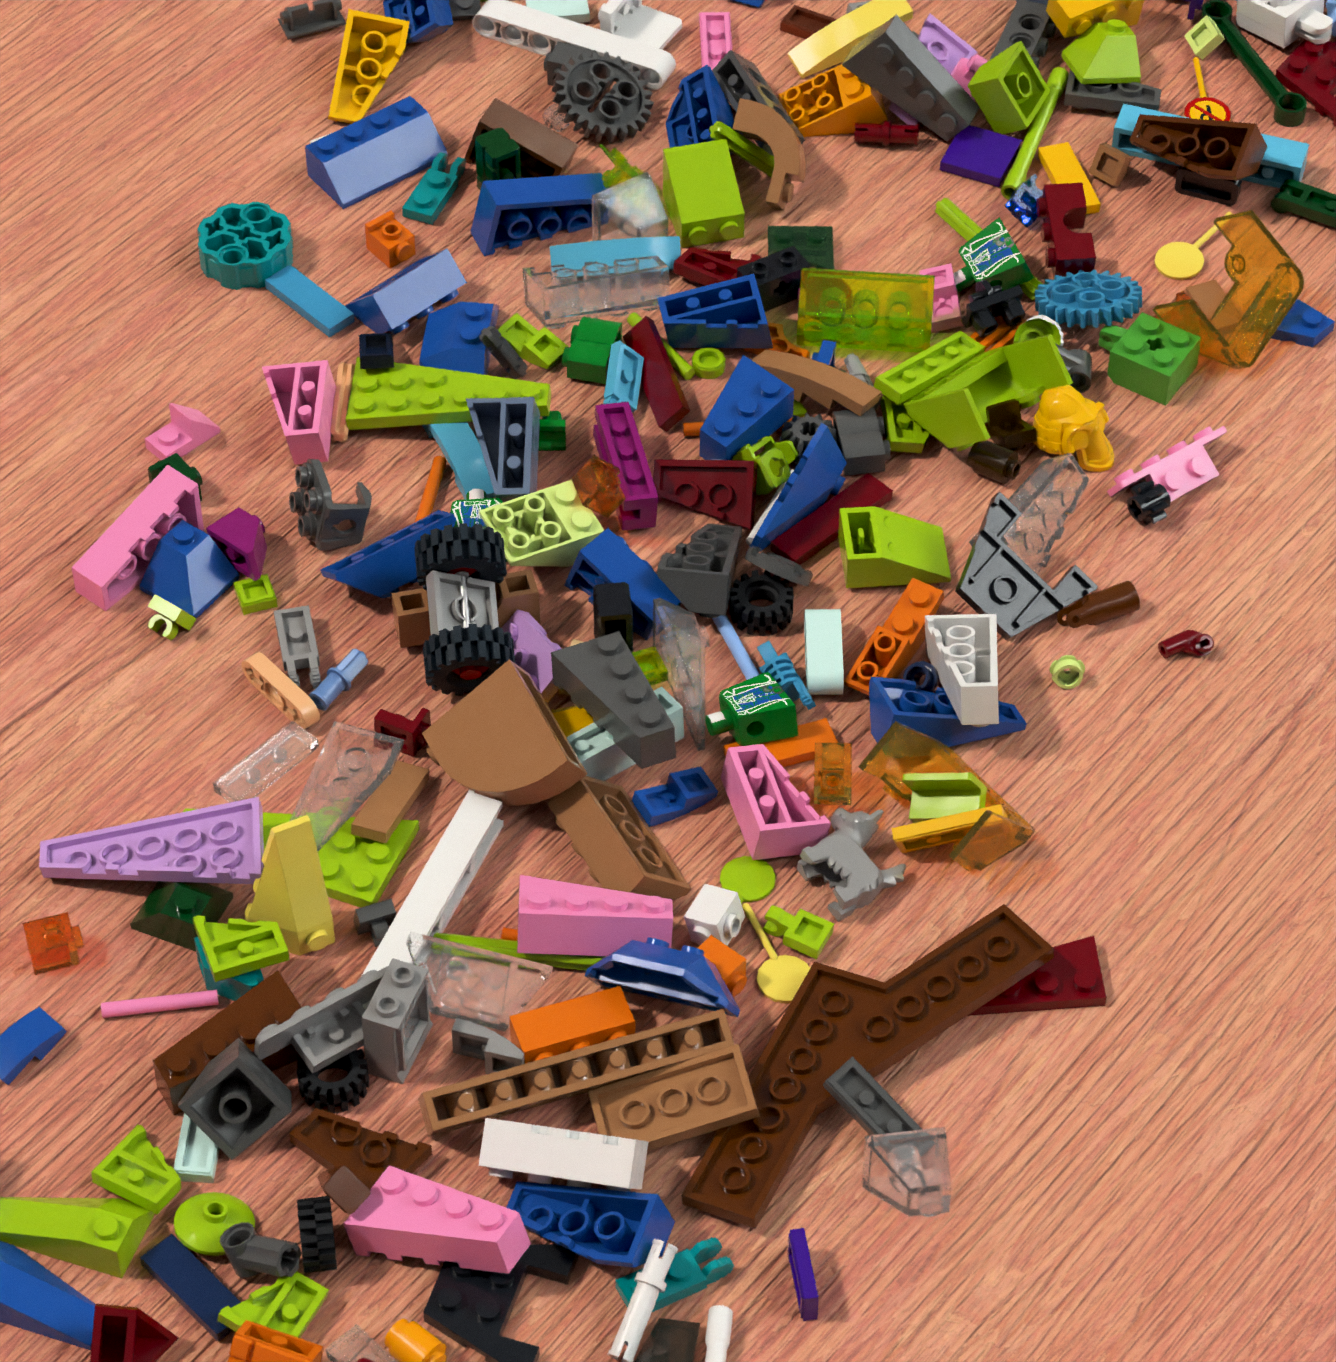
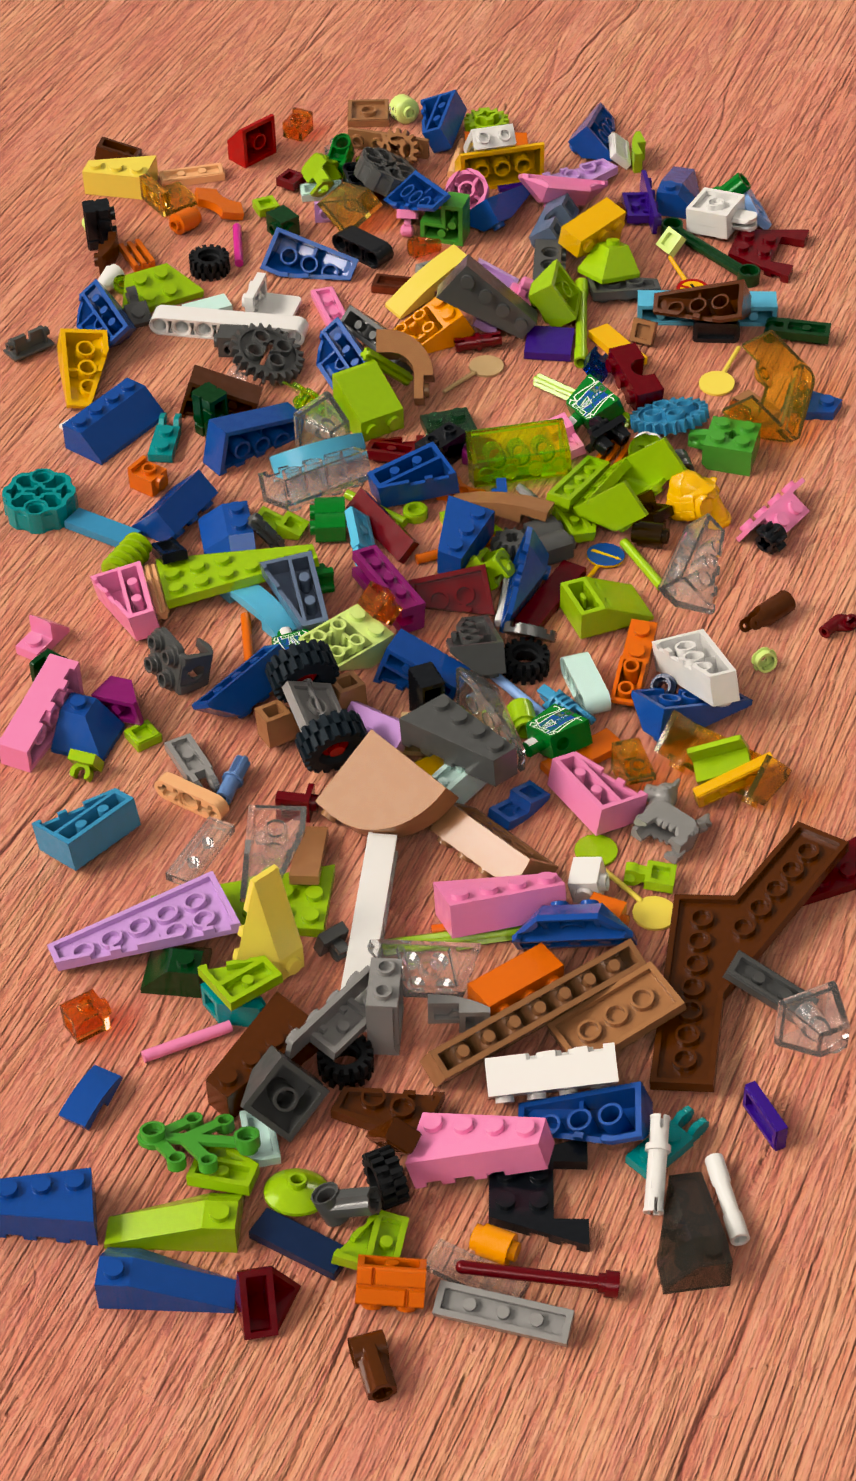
camera: 15 degrees left, 5 degrees down
(77, 1114) = (158, 1137): none -> bright green plant
(140, 705) = (89, 830): none -> dark azure wedge
(326, 342) = (131, 549): none -> lime piece
(723, 672) = (521, 713): none -> lime brick
(879, 170) = (481, 366): none -> tan piece
(925, 478) = (604, 556): none -> blue piece
(967, 495) = (640, 561): none -> lime bar
(1005, 585) = (694, 608): wing -> none

